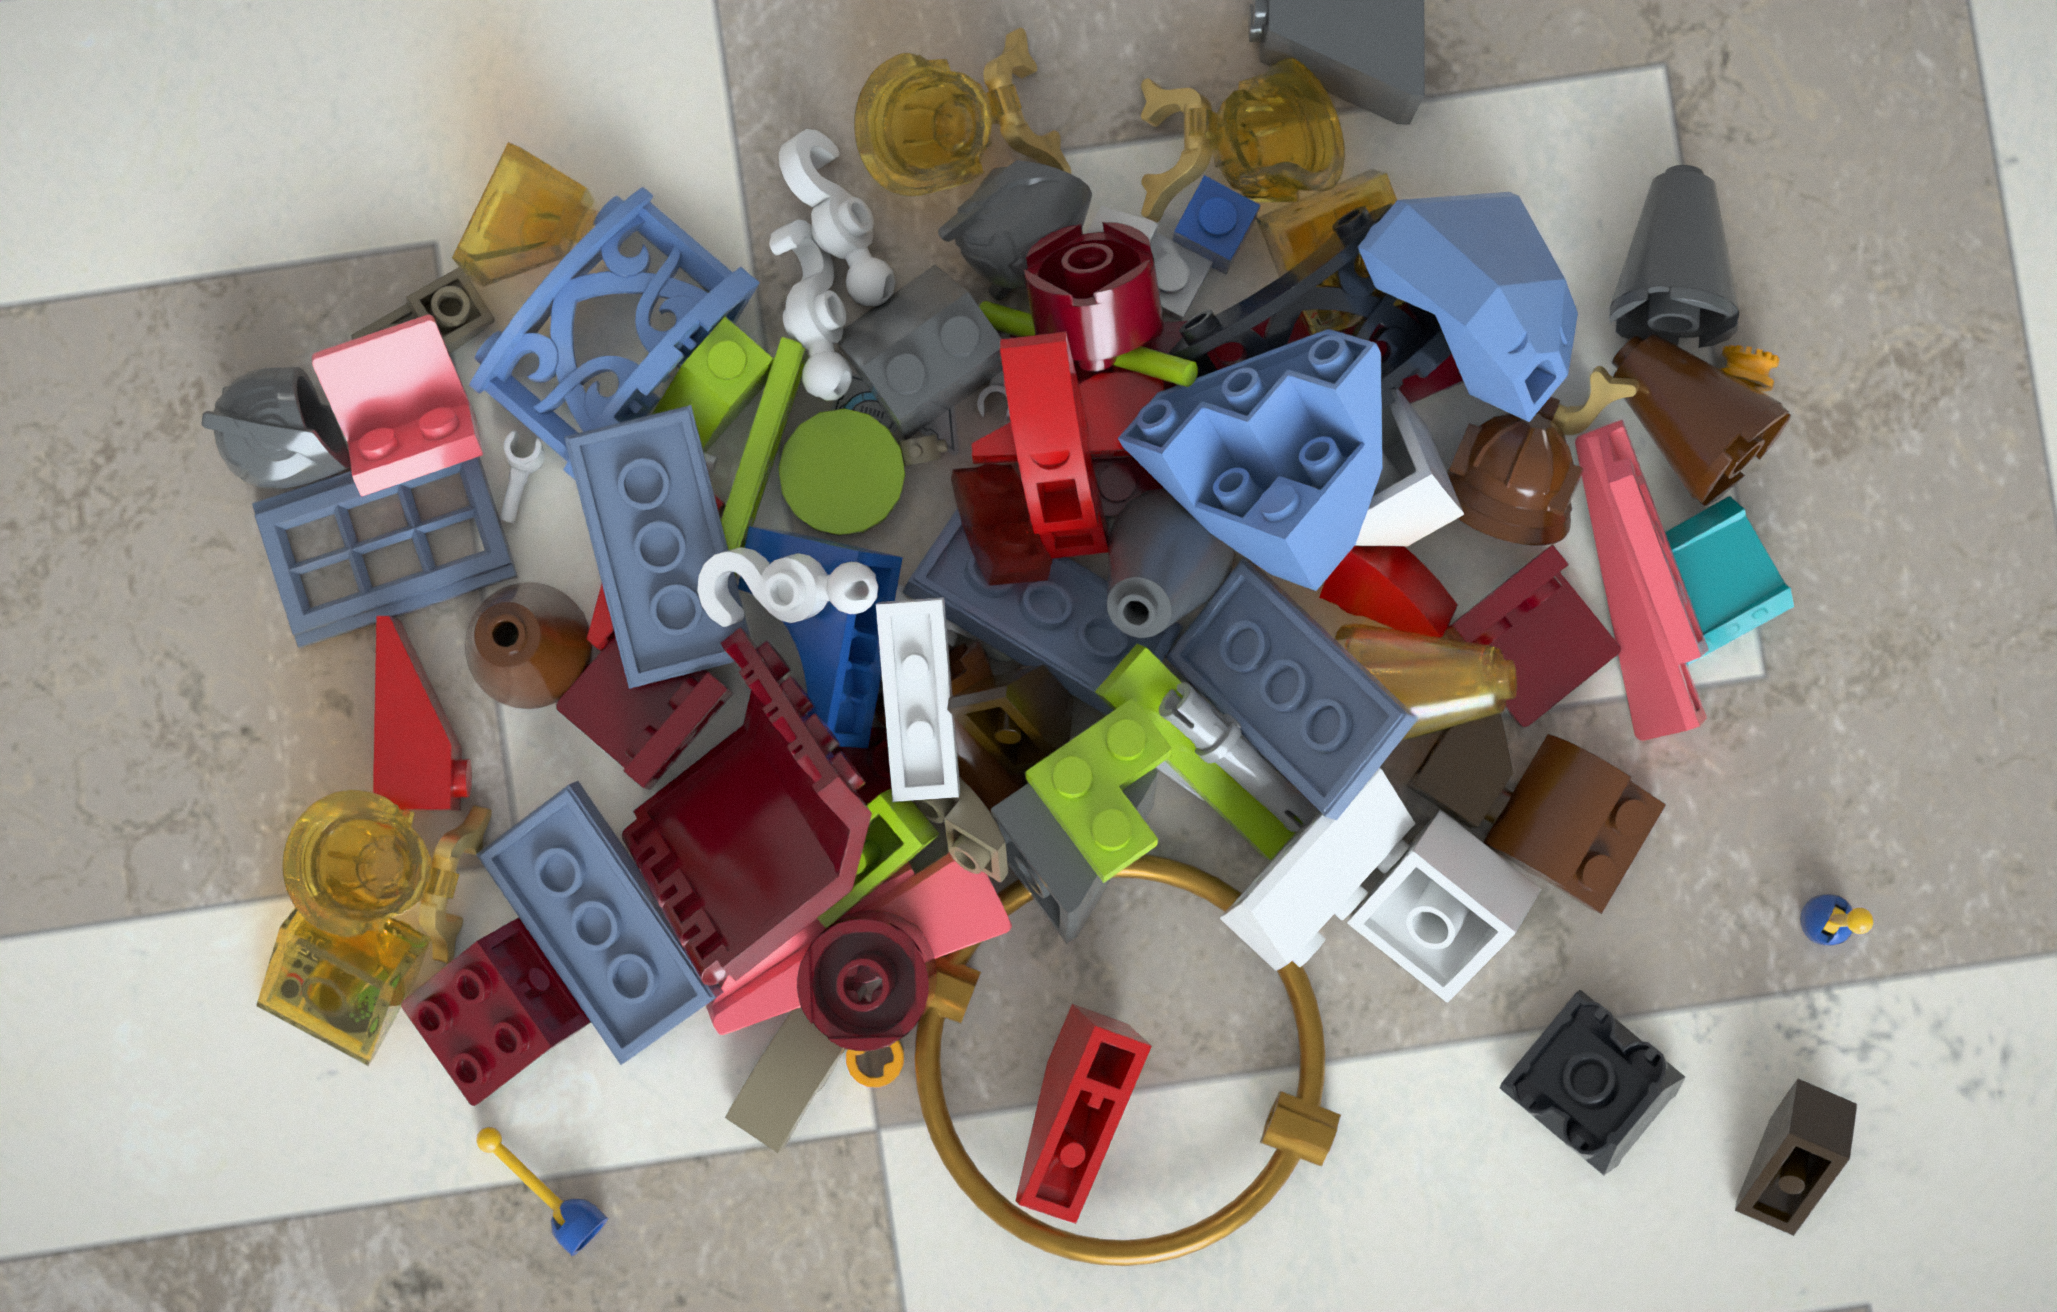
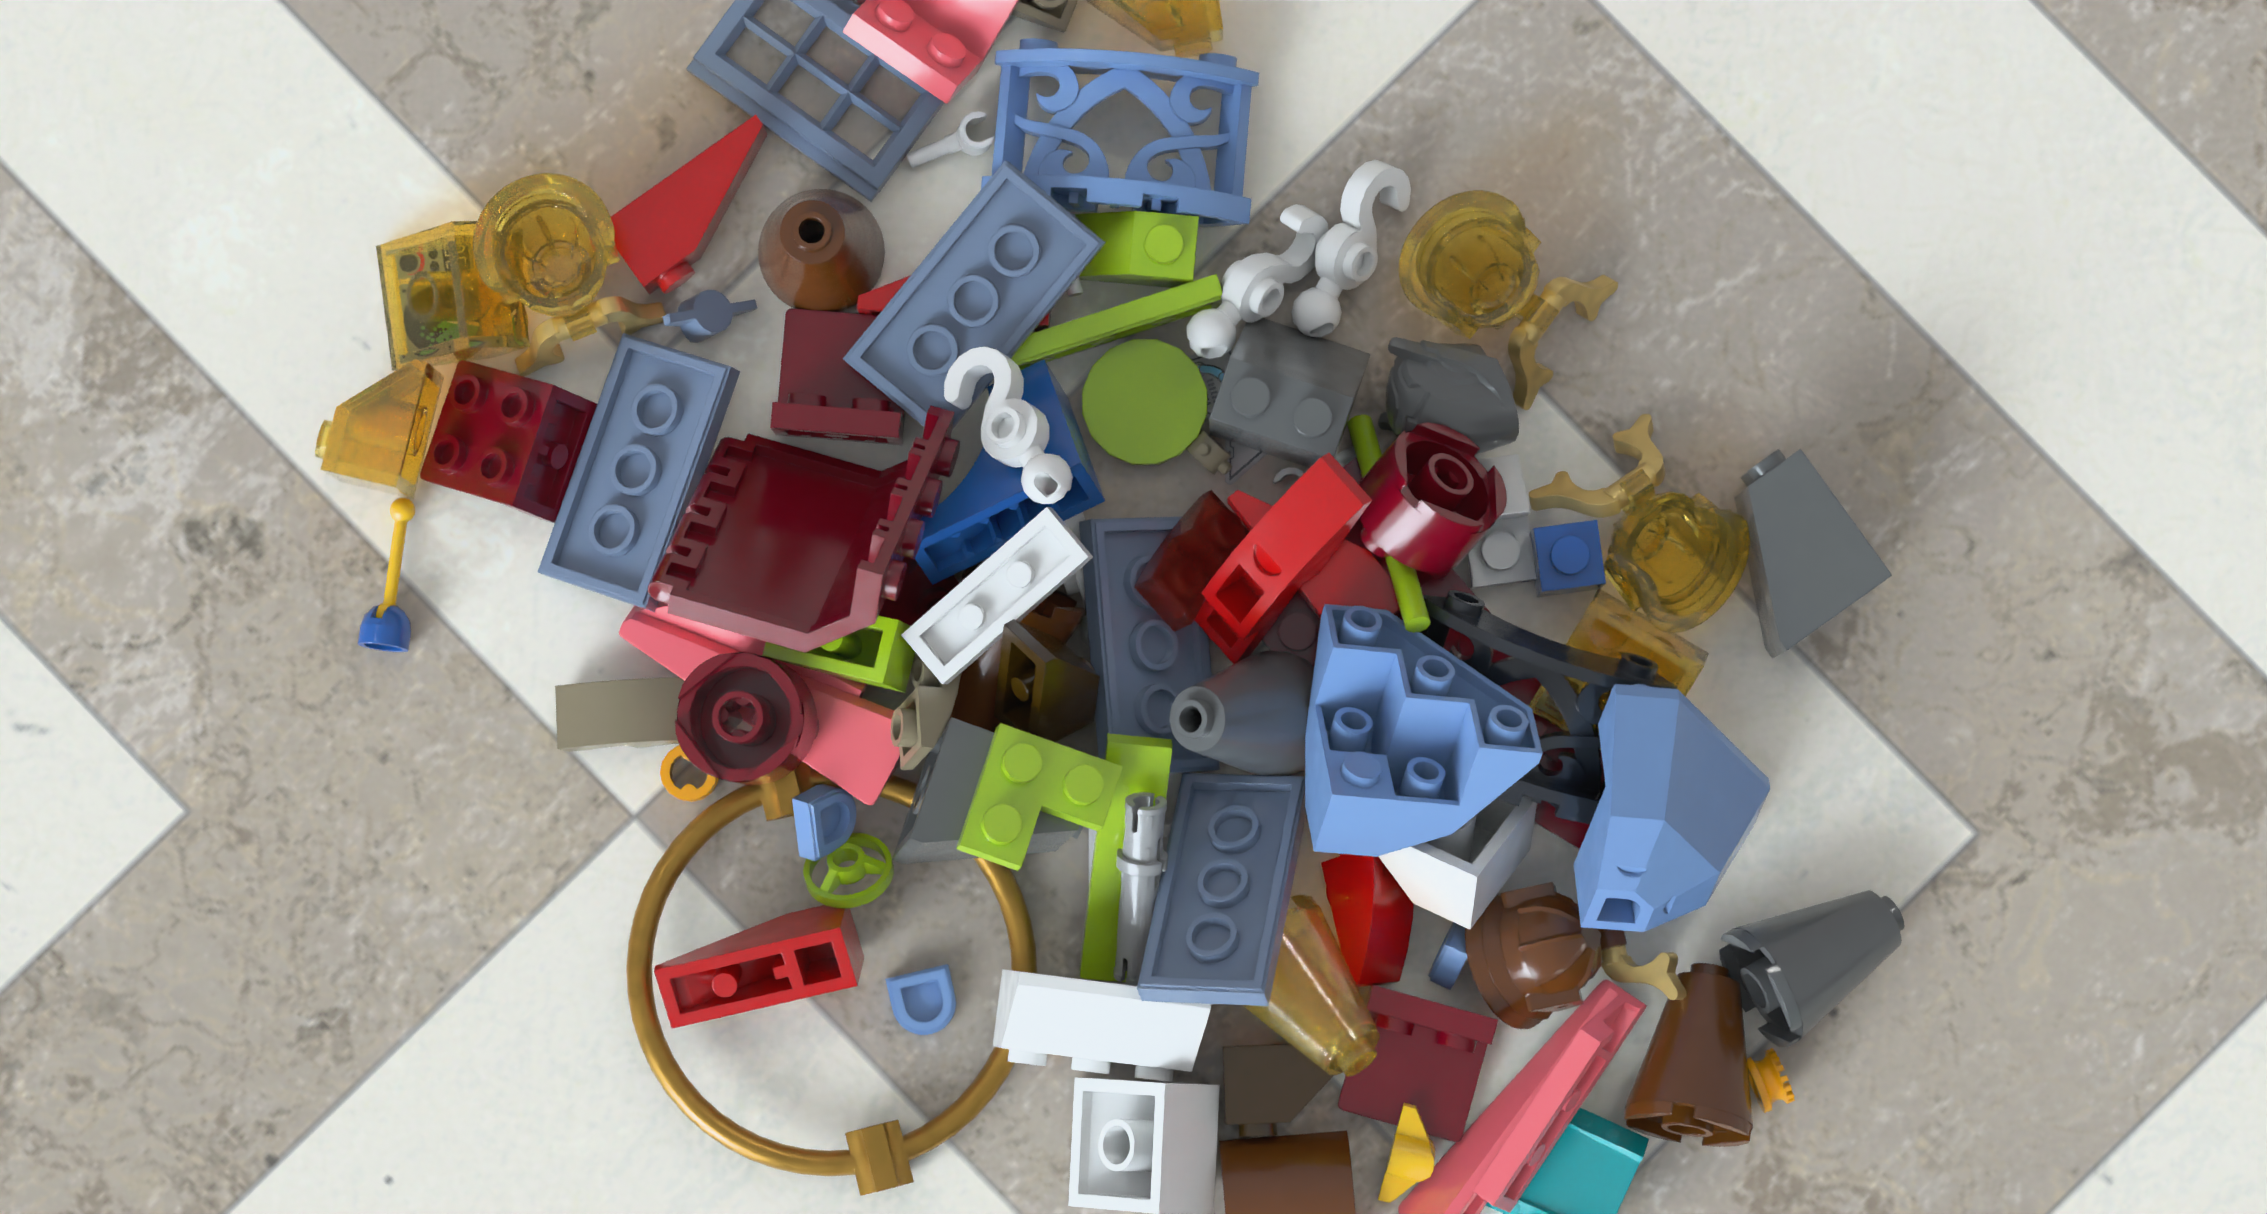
camera: 60 degrees right, 0 degrees up
(412, 1109) = (383, 431): none -> clear yellow slope
(511, 775) = (706, 315): none -> sand blue piece
(994, 976) = (823, 820): none -> medium blue tile
(1028, 976) = (849, 875): none -> lime piece
(1196, 1000) = (923, 999): none -> medium blue tile
(1468, 549) = (1449, 958): none -> medium blue tile
(1603, 699) = (1409, 1157): none -> yellow piece

